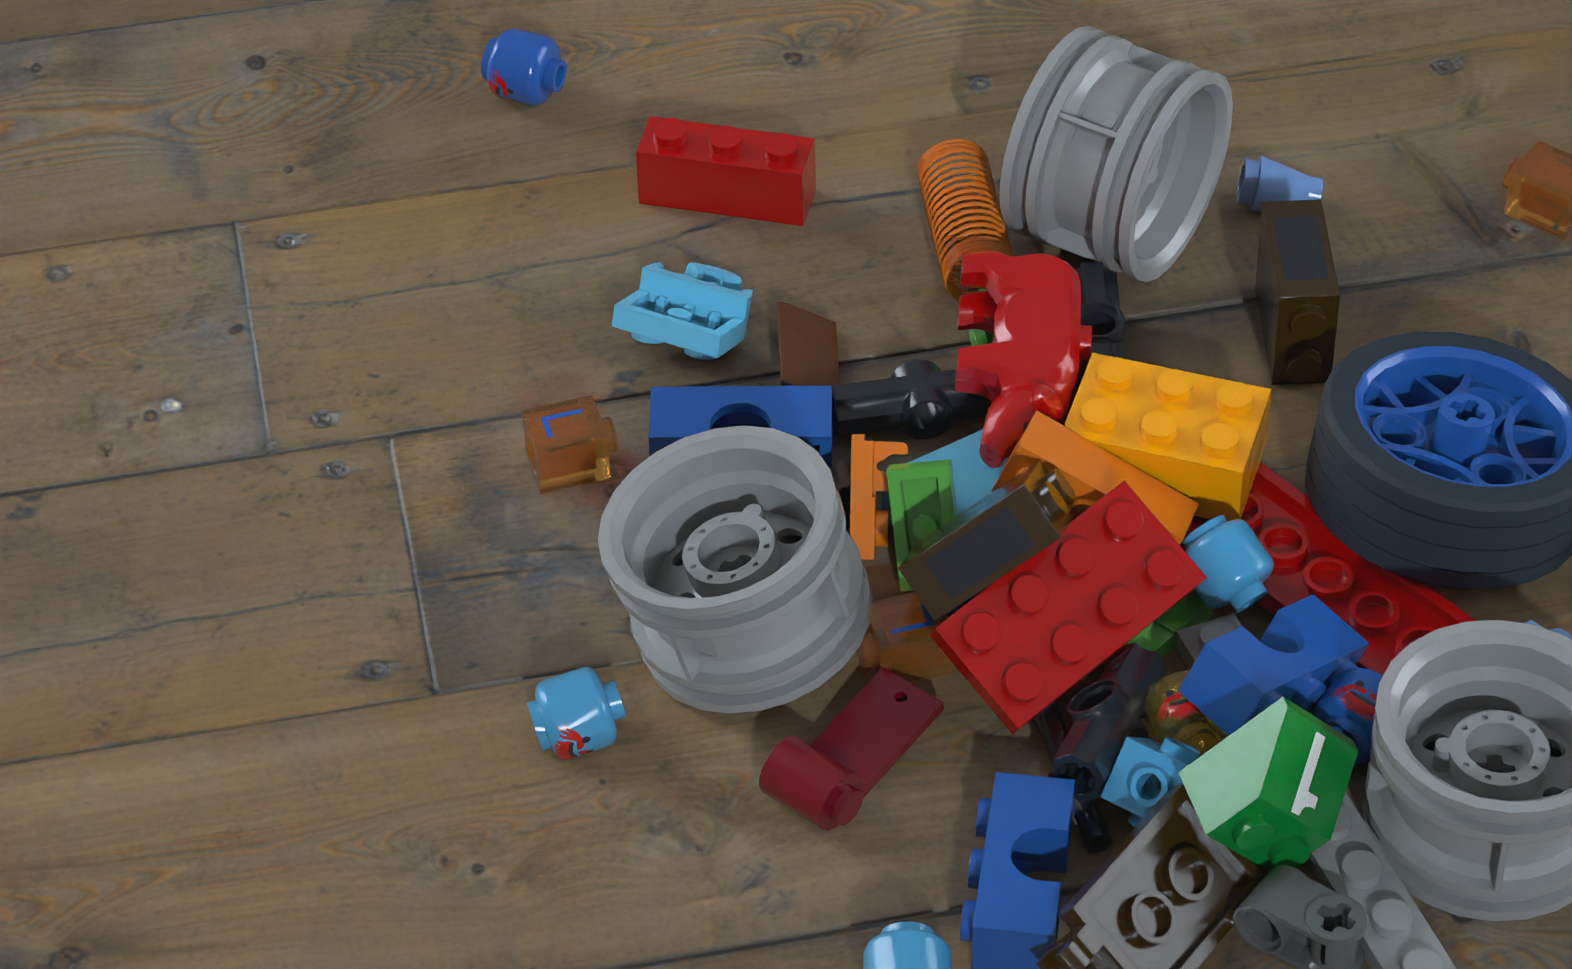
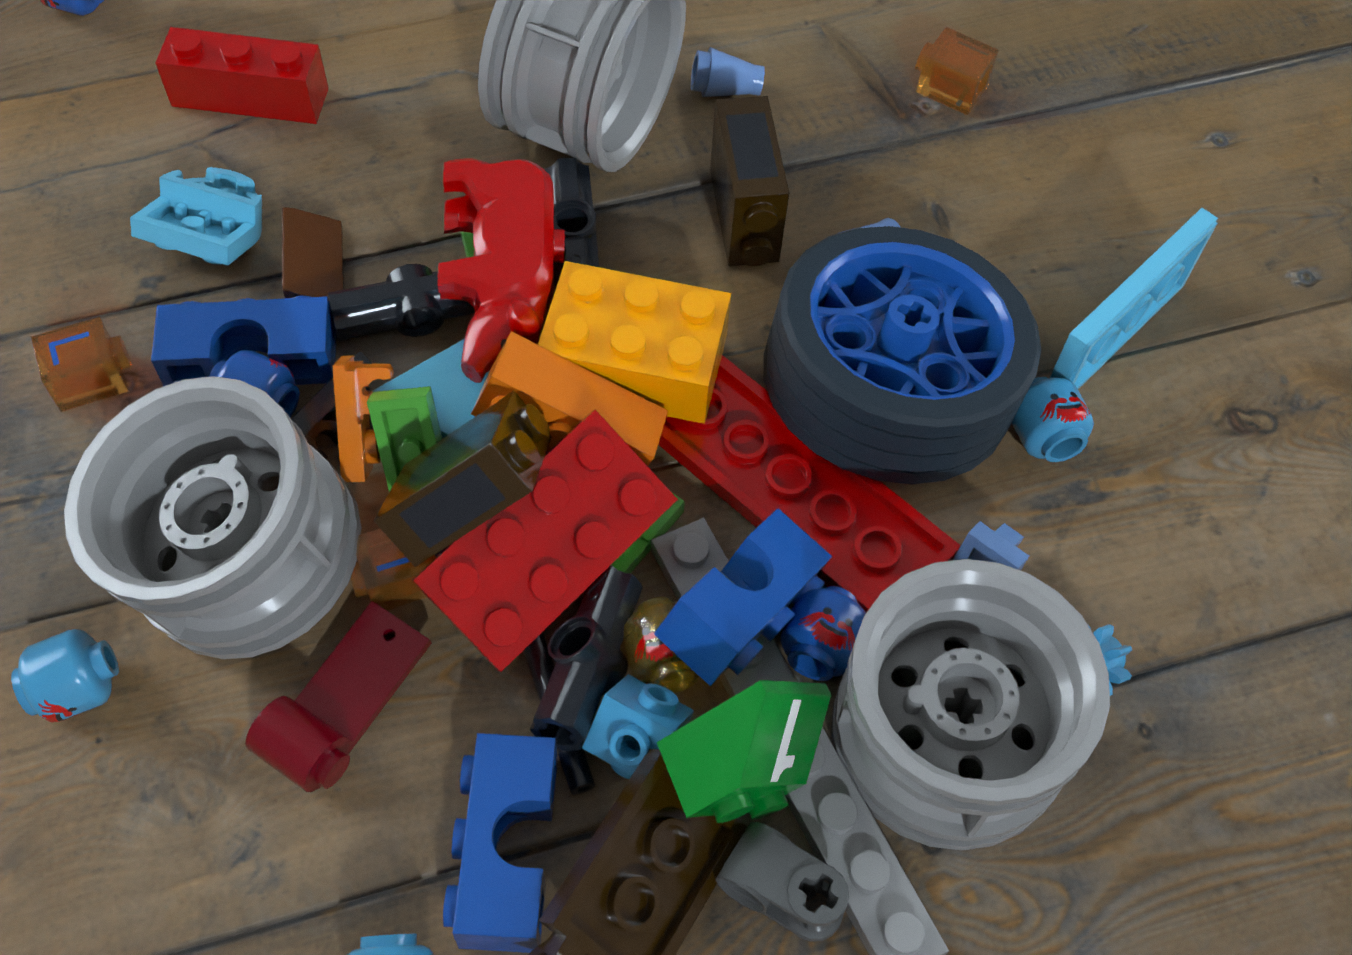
camera: 10 degrees left, 15 degrees up
(935, 197) = (426, 91): orange piece -> none
(1231, 561) = (697, 475): dark azure head -> none

